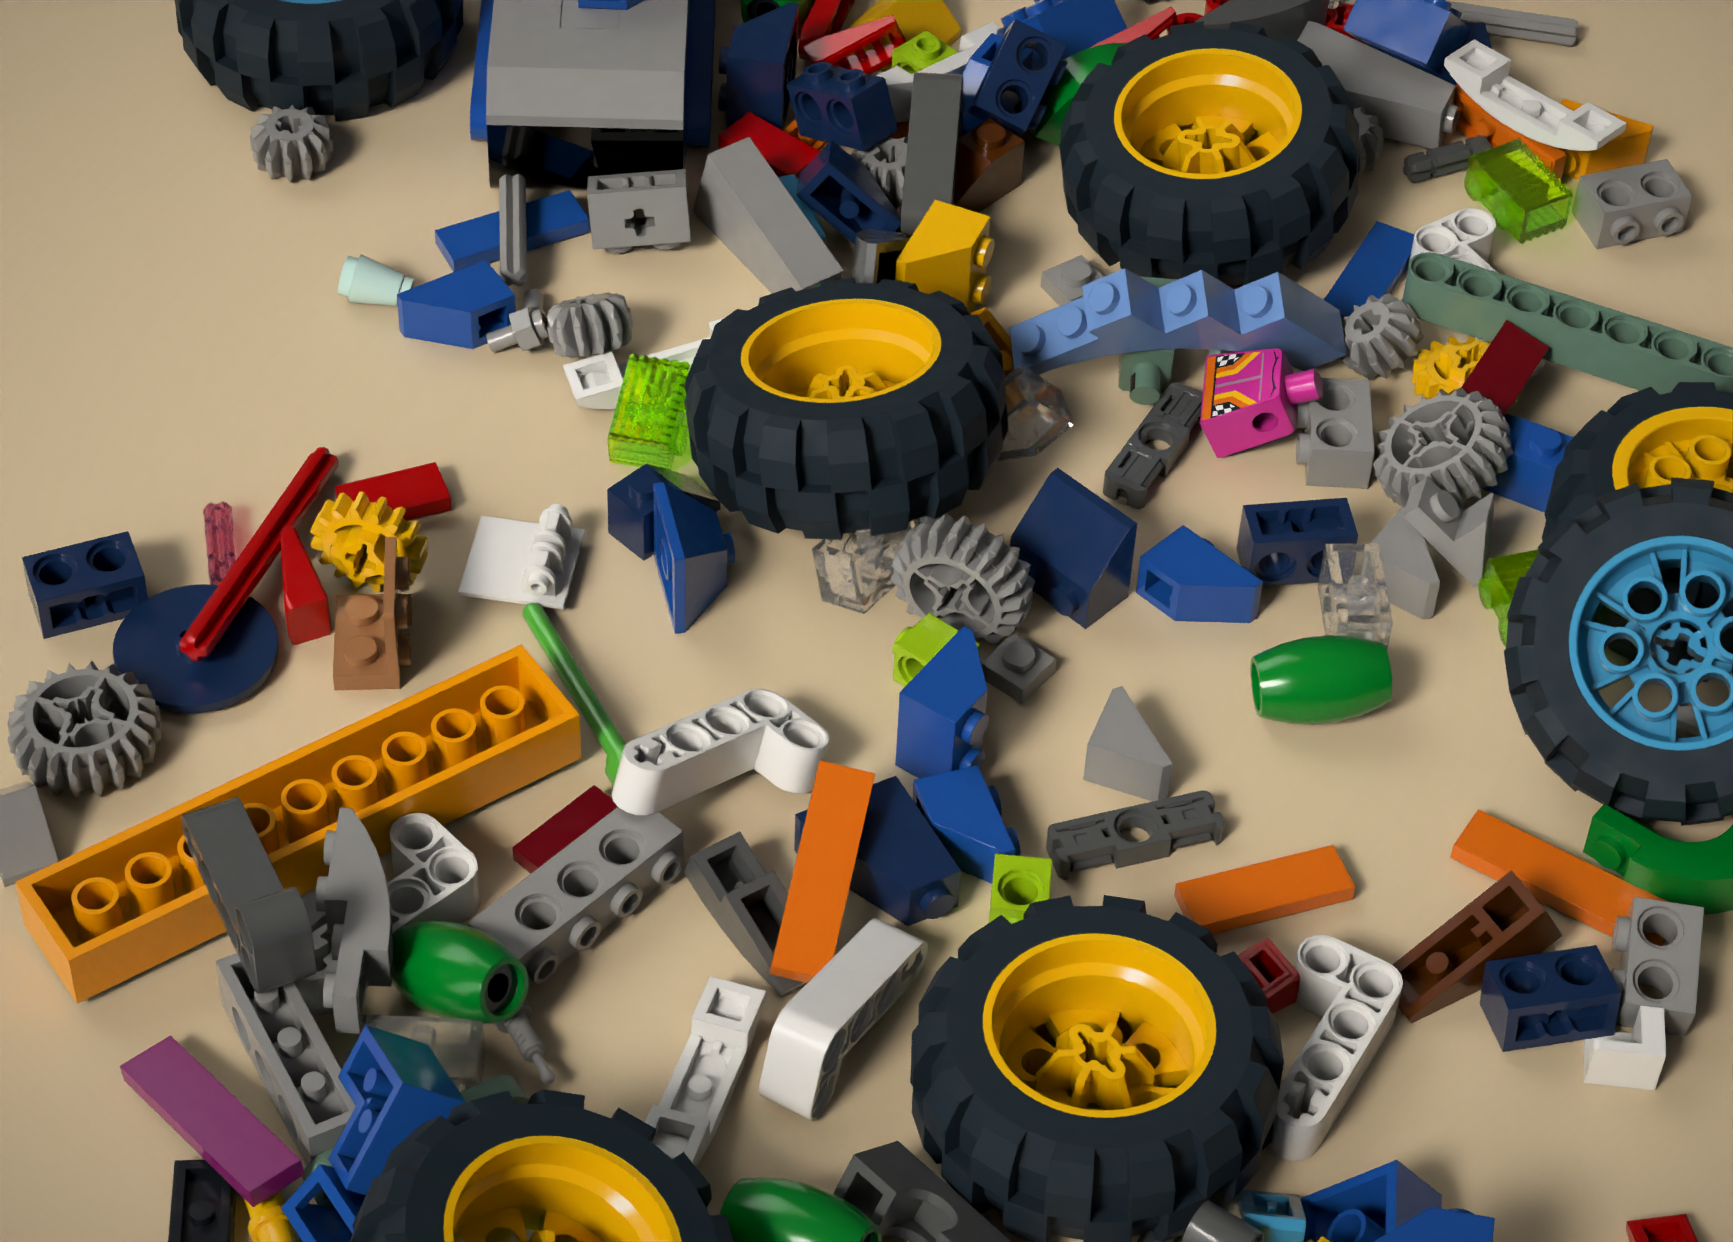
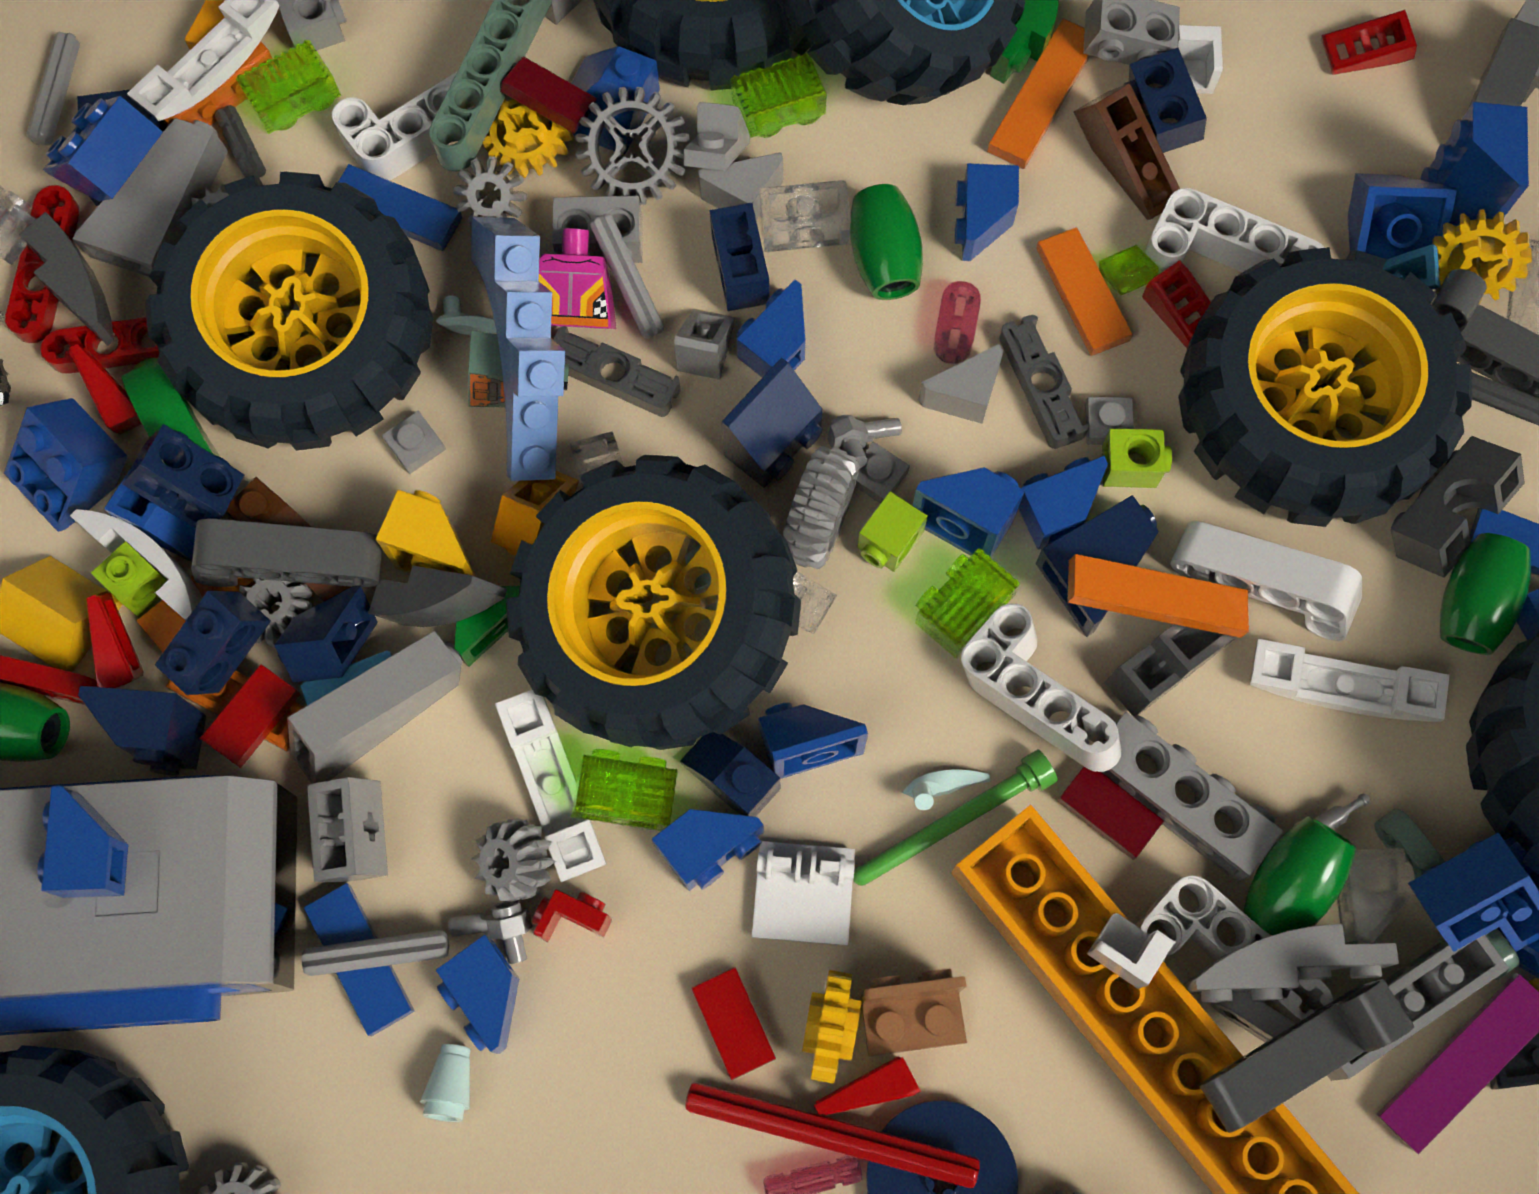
camera: 90 degrees left, 25 degrees up
(391, 765) = (1130, 950): none -> white panel
(527, 374) = (583, 911): none -> red bracket
(578, 472) = (704, 841): none -> blue slope
(628, 684) = (941, 783): none -> light aqua bar
(857, 724) = (965, 601): none -> clear neon green brick
(1062, 637) = (853, 434): none -> light grey piece
(1082, 884) = (1107, 414): none -> light grey plate
(1188, 501) = (703, 343): none -> light grey slope
(1219, 758) = (965, 323): none -> clear pink beam
(1268, 441) = (627, 275): none -> light grey axle
(1287, 928) = (1128, 269): none -> clear neon green tile
(1377, 792) = (988, 203): none -> blue slope

